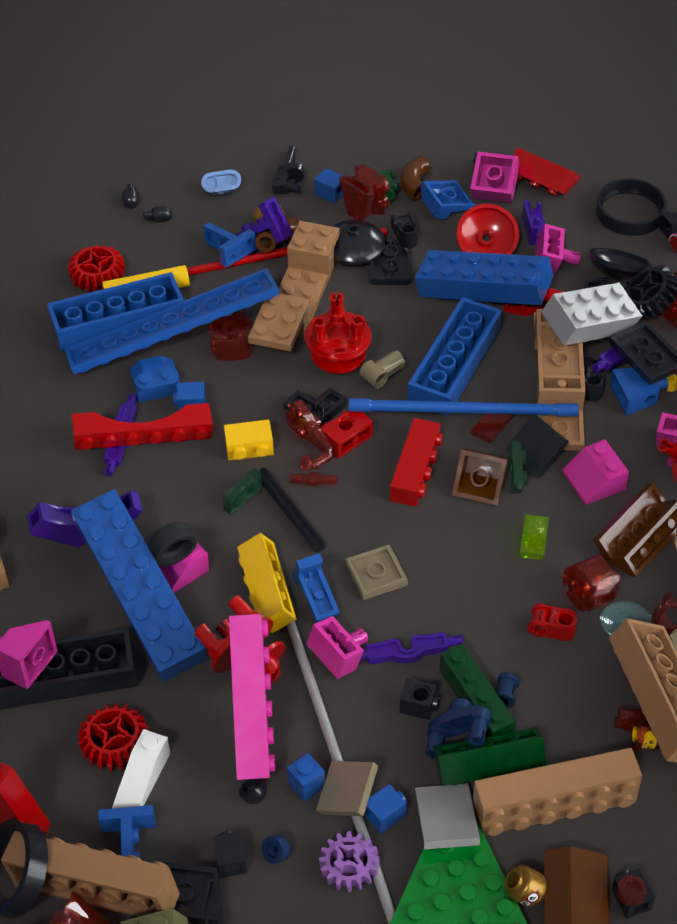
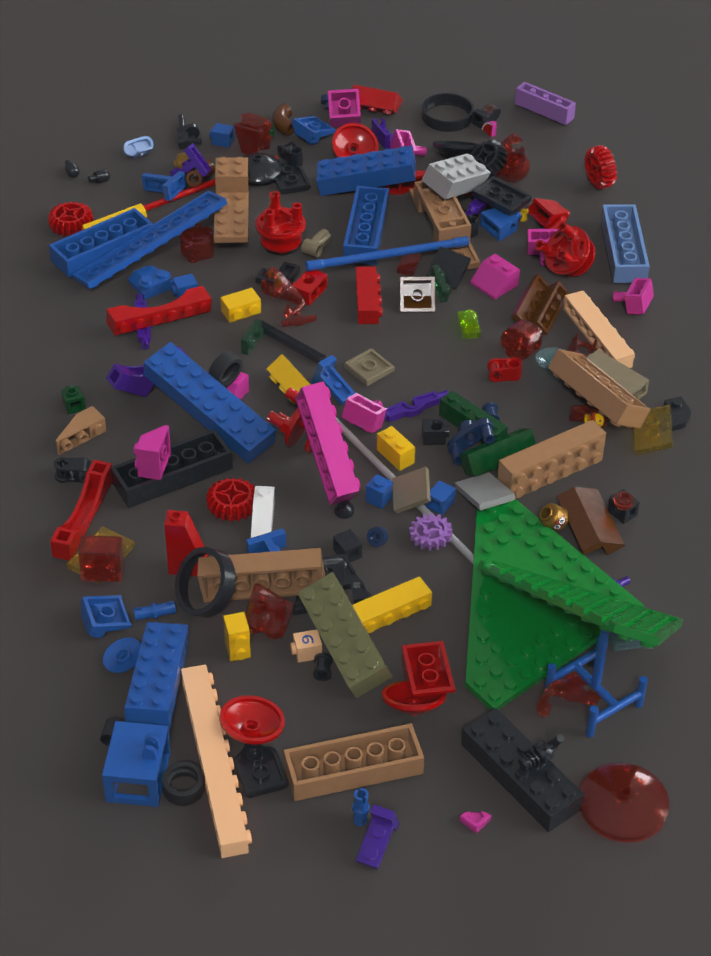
camera: 20 degrees left, 5 degrees down
(355, 713) = (395, 448): none -> yellow brick

